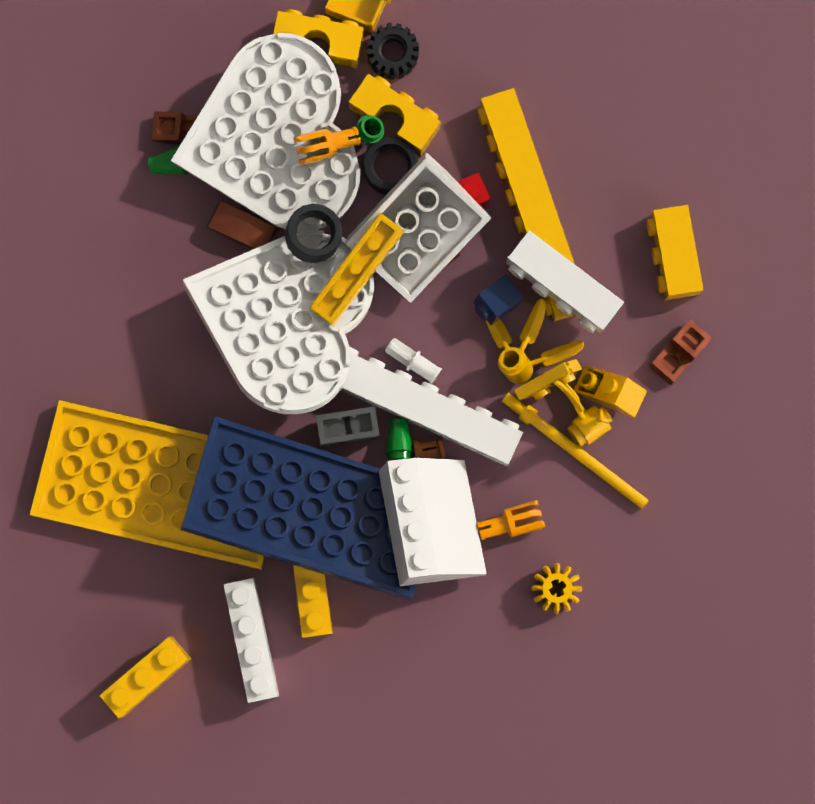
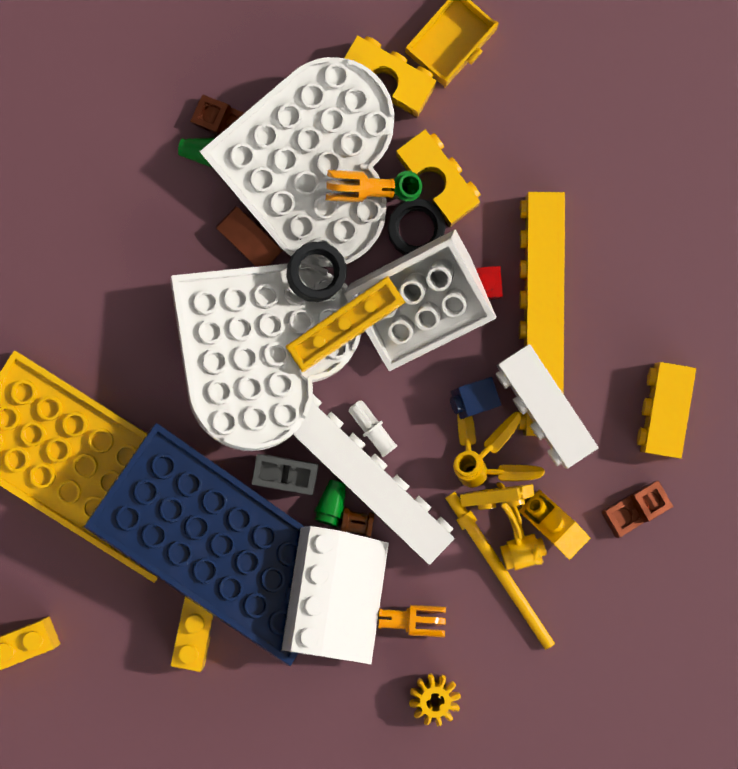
camera: 20 degrees right, 5 degrees up
(251, 640) = (122, 649): white brick -> none
(386, 35) = (458, 131): black tyre -> none

